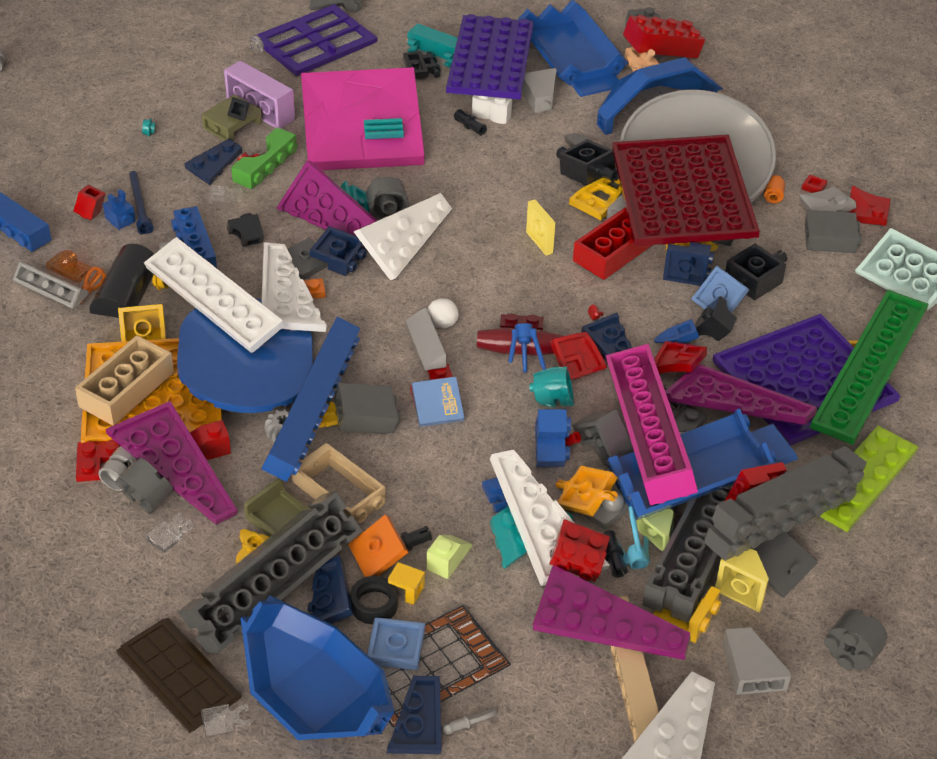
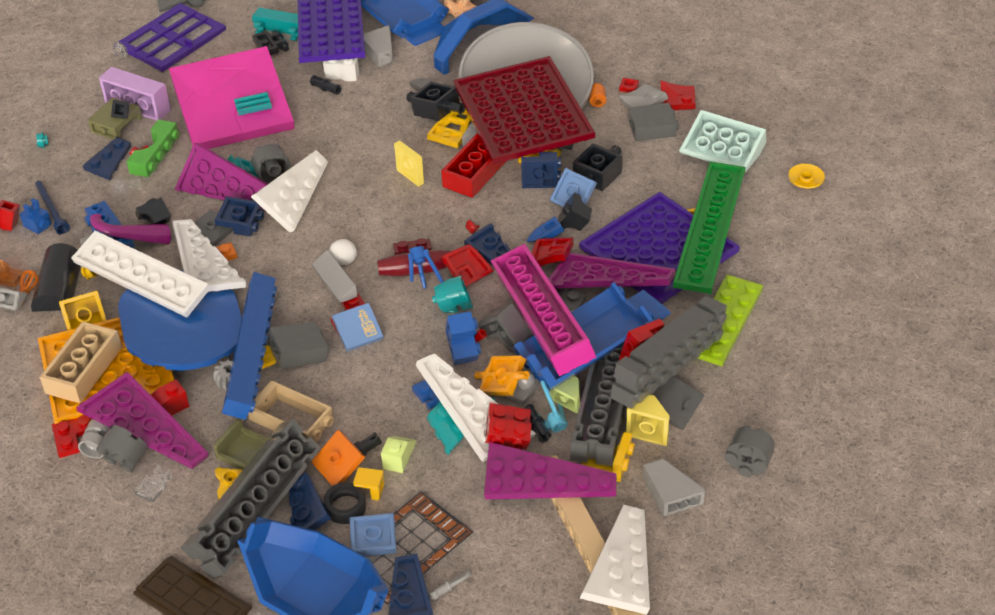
camera: 10 degrees left, 0 degrees up
(236, 251) = (149, 233): none -> magenta animal

